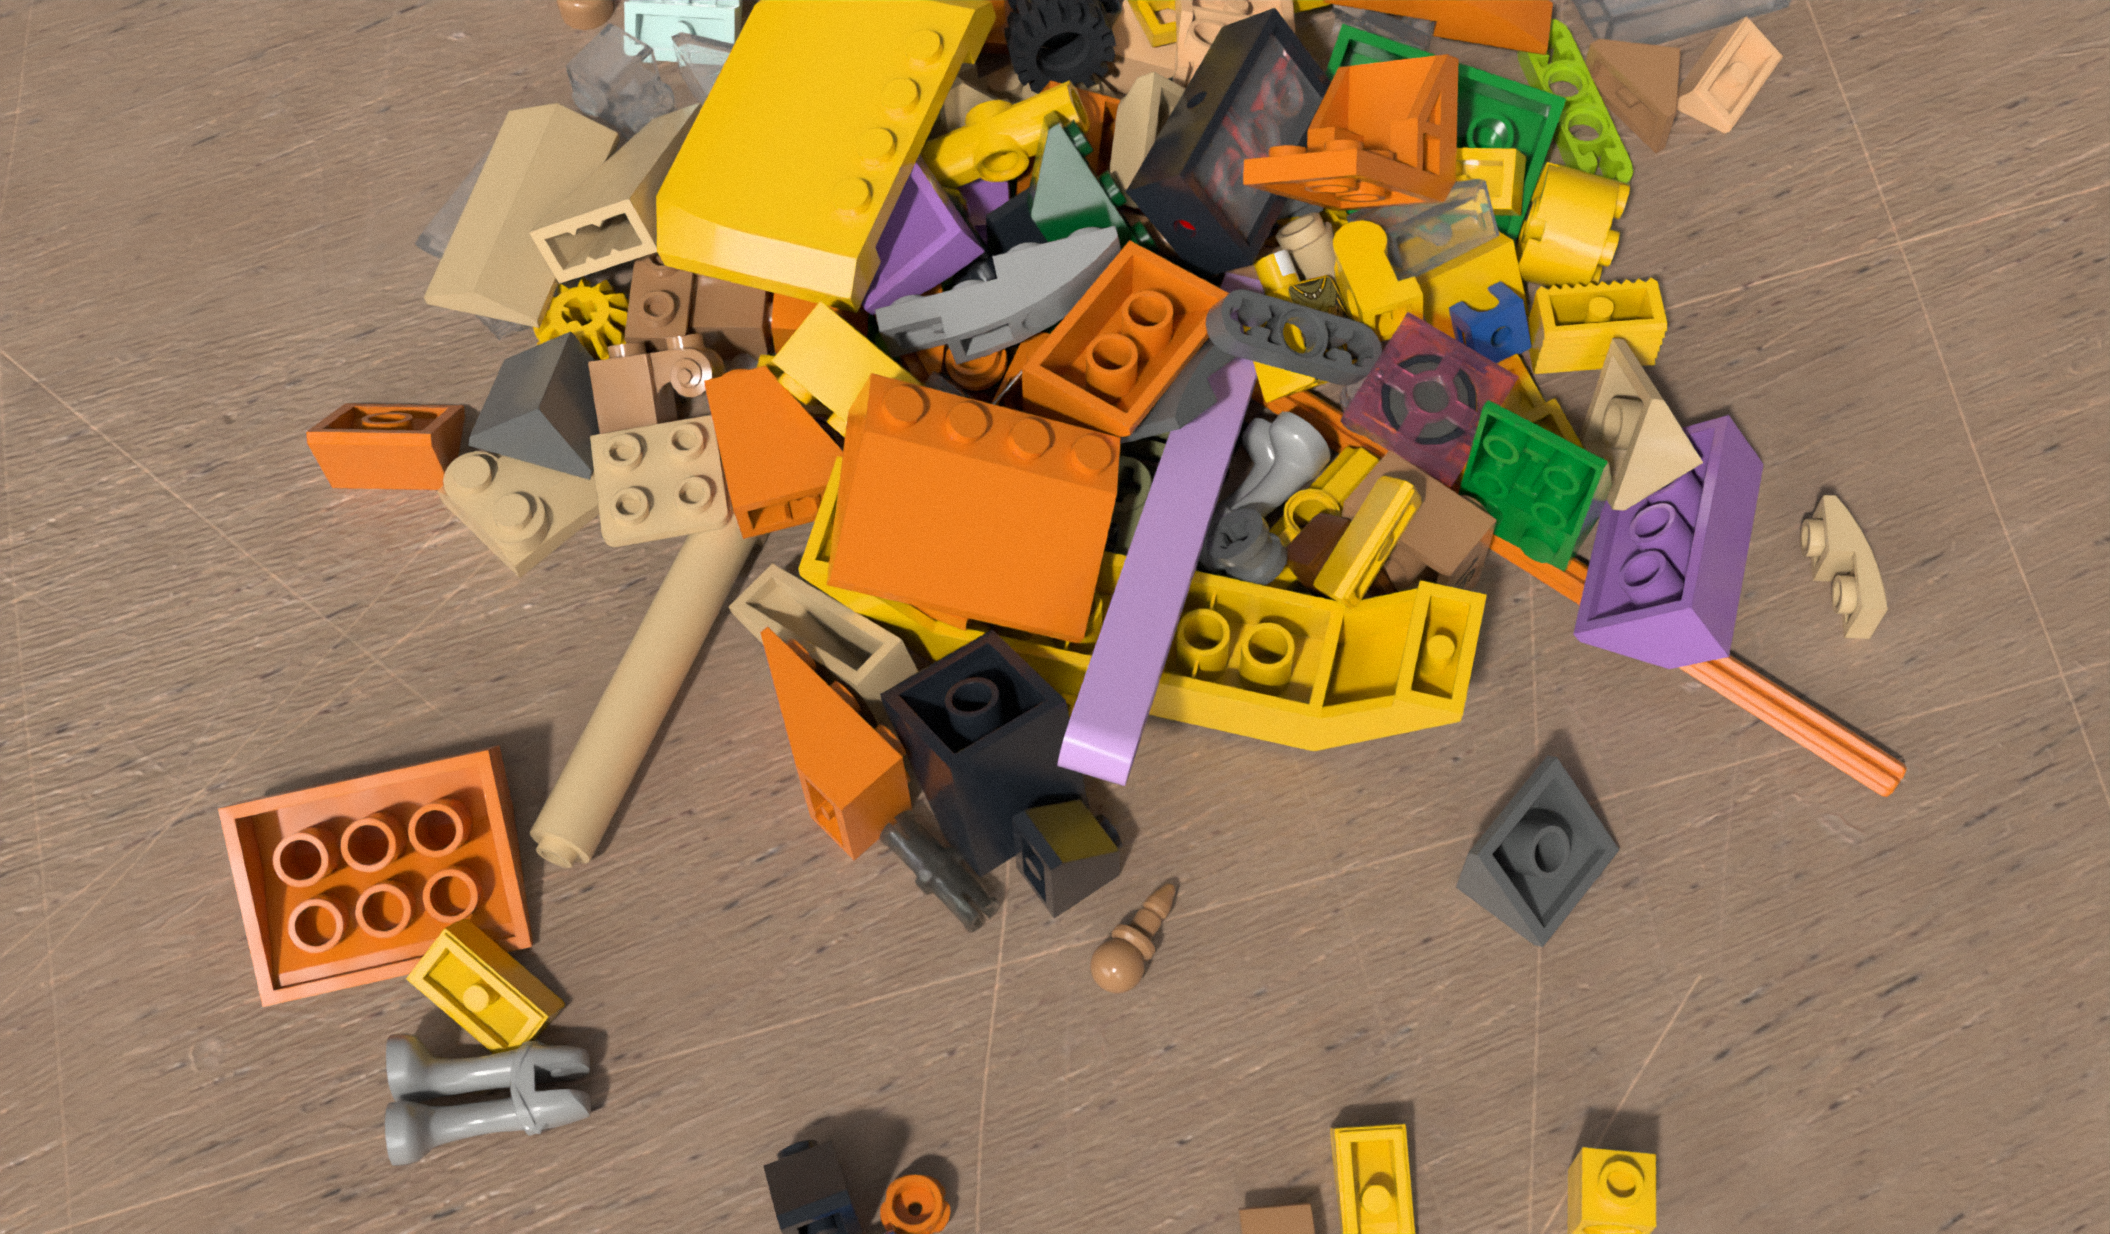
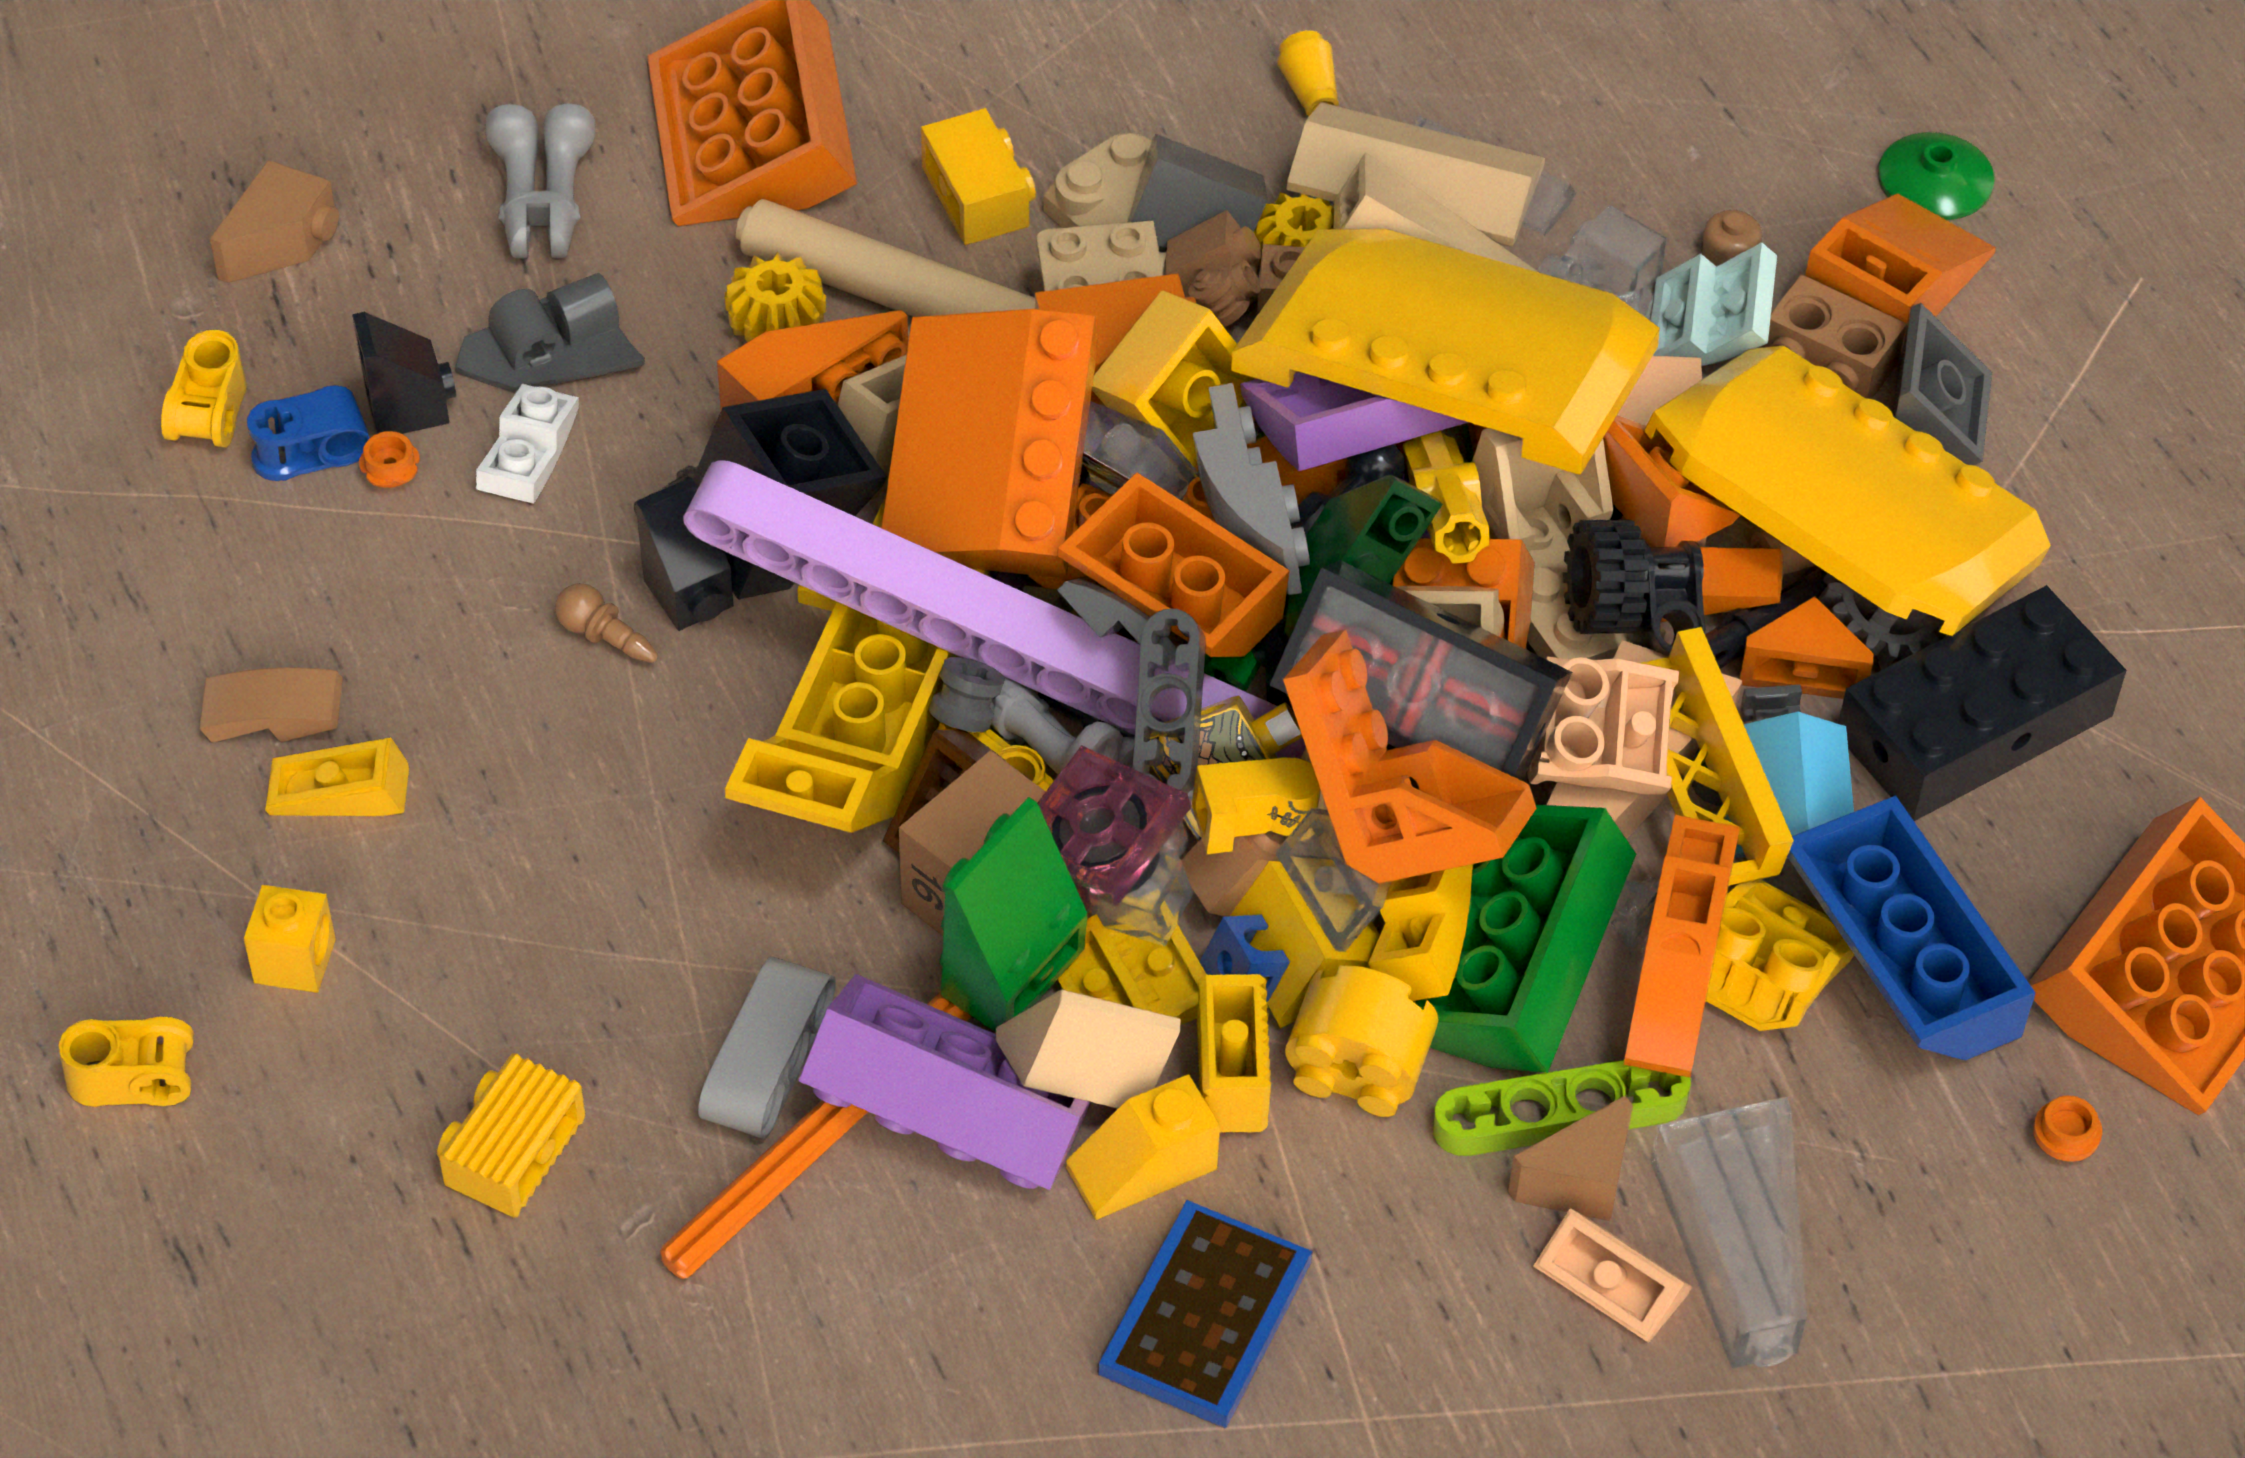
camera: 90 degrees right, 10 degrees down
(348, 333) = (1309, 69): none -> yellow cone
(387, 445) = (1190, 96): orange slope -> none
(484, 988) = (635, 186): yellow slope -> none
(487, 630) = (976, 176): none -> yellow brick
(700, 817) = (774, 297): none -> yellow gear
(723, 1054) = (549, 338): none -> dark grey panel
(877, 1059) = (529, 443): none -> white slope
(1368, 541) = (933, 757): yellow slope -> none
(1538, 855) = (635, 930): dark grey slope -> none
(1646, 718) = (766, 1047): none -> light grey beam
(1695, 378) = (1146, 1148): none -> yellow slope
(1800, 940) = (511, 1134): none -> yellow brick
(1838, 354) = (1205, 1313): none -> tile
(1845, 558) = (946, 1250): tan slope -> none

